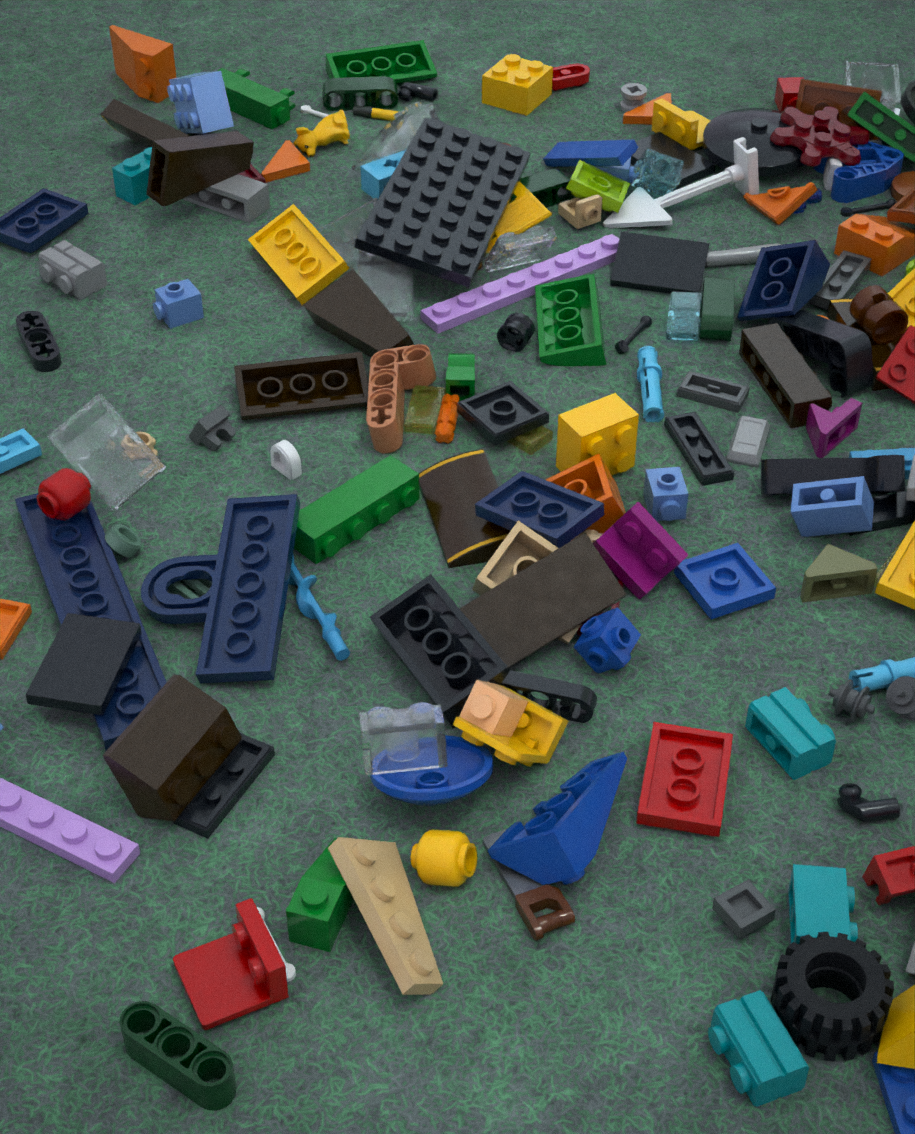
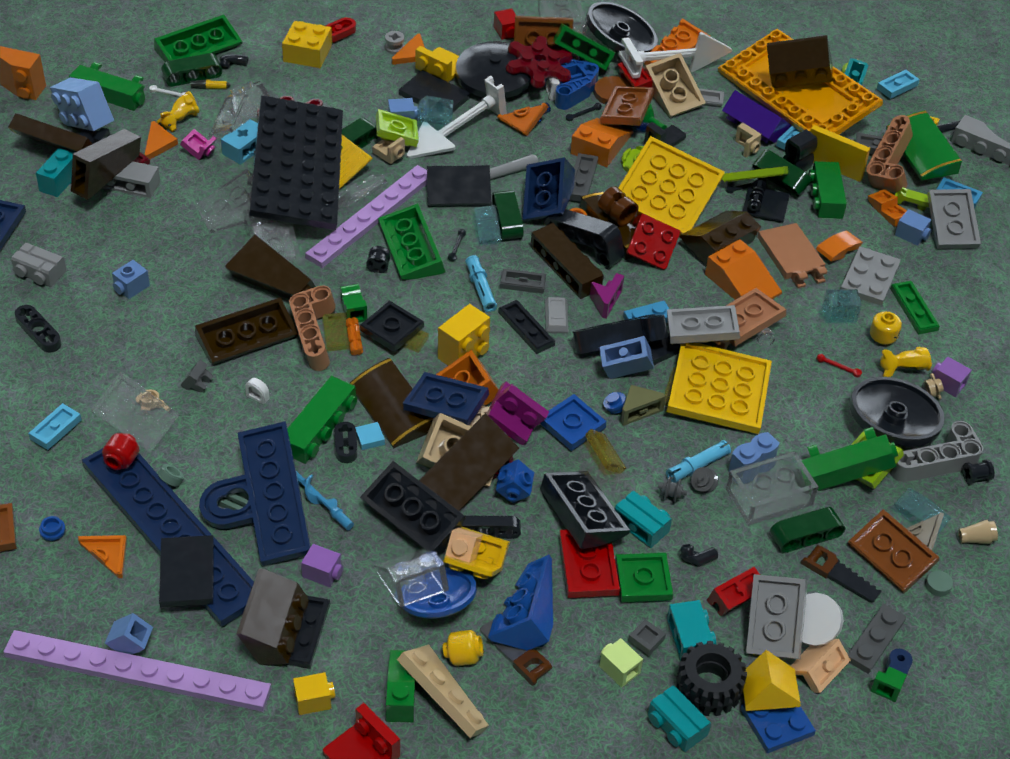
camera: 20 degrees left, 5 degrees up
(192, 871) = (313, 693): none -> yellow brick
(279, 697) = (322, 565): none -> medium lavender brick
(298, 254) = (202, 222): yellow plate -> none
(332, 171) = (198, 144): none -> dark pink bracket
(389, 547) = (341, 442): none -> black beam
(419, 544) = (370, 436): none -> medium azure tile
(592, 152) = (386, 100): blue tile -> none
(665, 493) = (517, 367): medium blue brick -> none
(688, 937) = (620, 662): none -> yellowish green brick
(700, 699) = (583, 508): none -> black slope
(762, 629) = (605, 451): none -> clear yellow tile
(767, 818) = (644, 577): none -> green plate
(795, 565) = (614, 402): none -> blue plate

